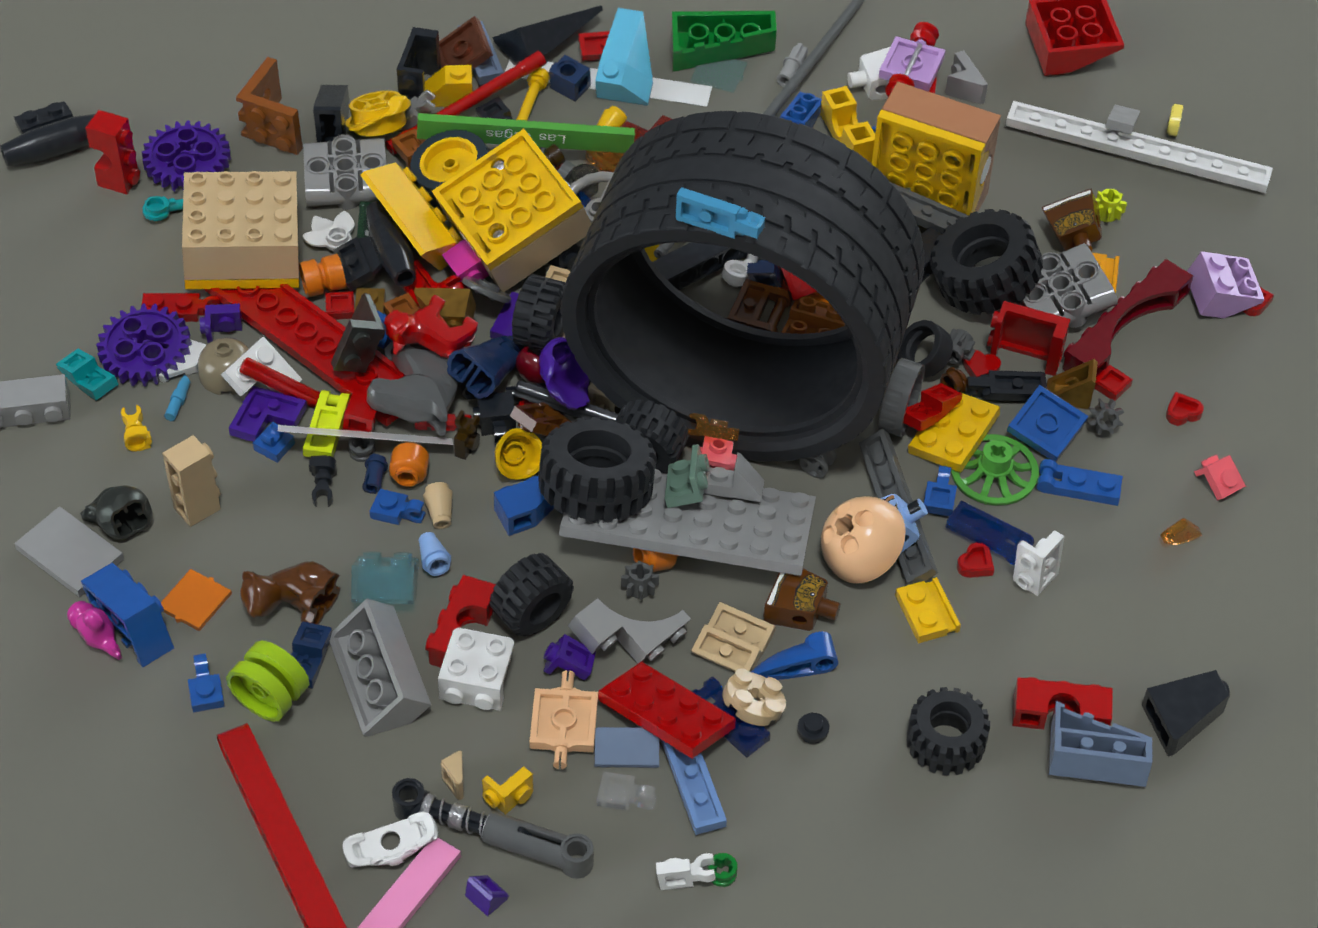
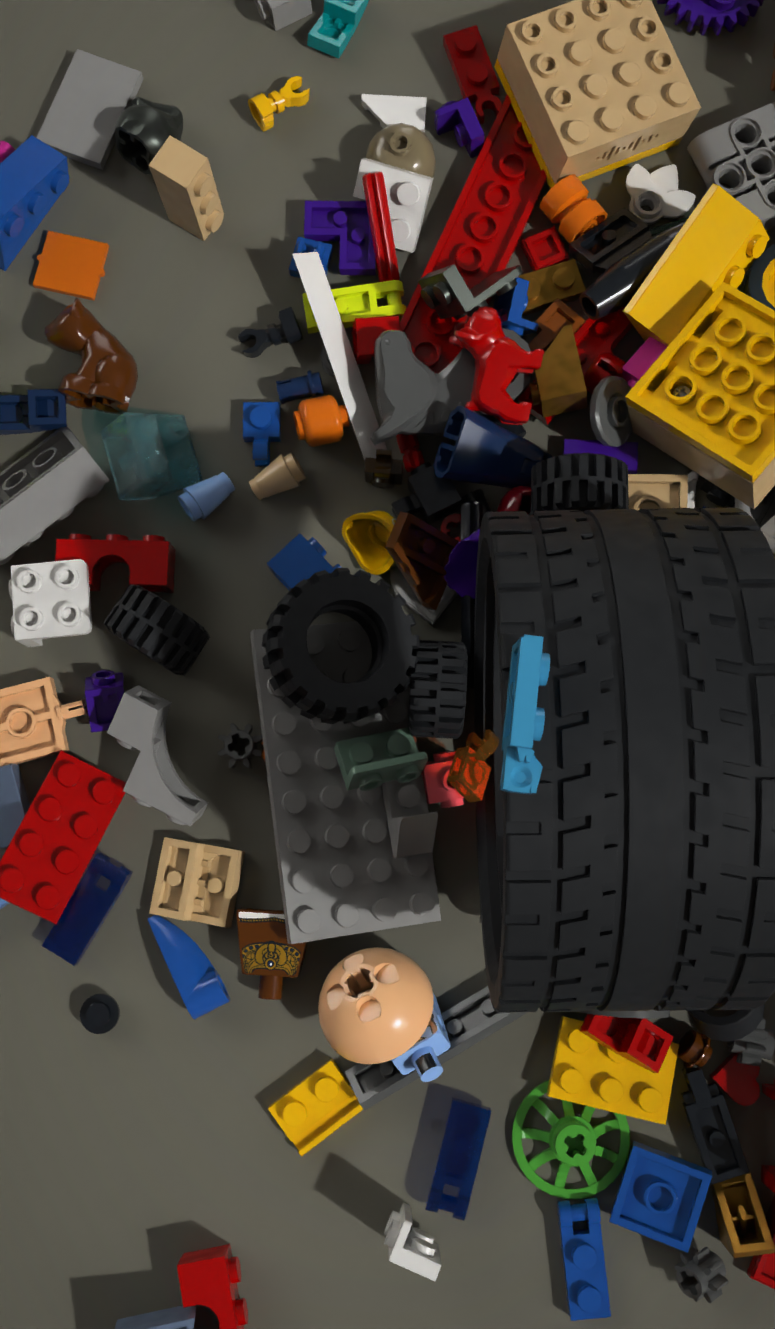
camera: 80 degrees right, 30 degrees up
(143, 344) = (428, 52): dark purple gear -> none
(177, 398) = (341, 129): dark azure piece -> none
(746, 686) = (114, 956): tan plate -> none
(939, 495) = (493, 1080): blue plate -> none
(952, 710) = (103, 1204): black tyre -> none
(976, 561) = (412, 1150): red tile -> none

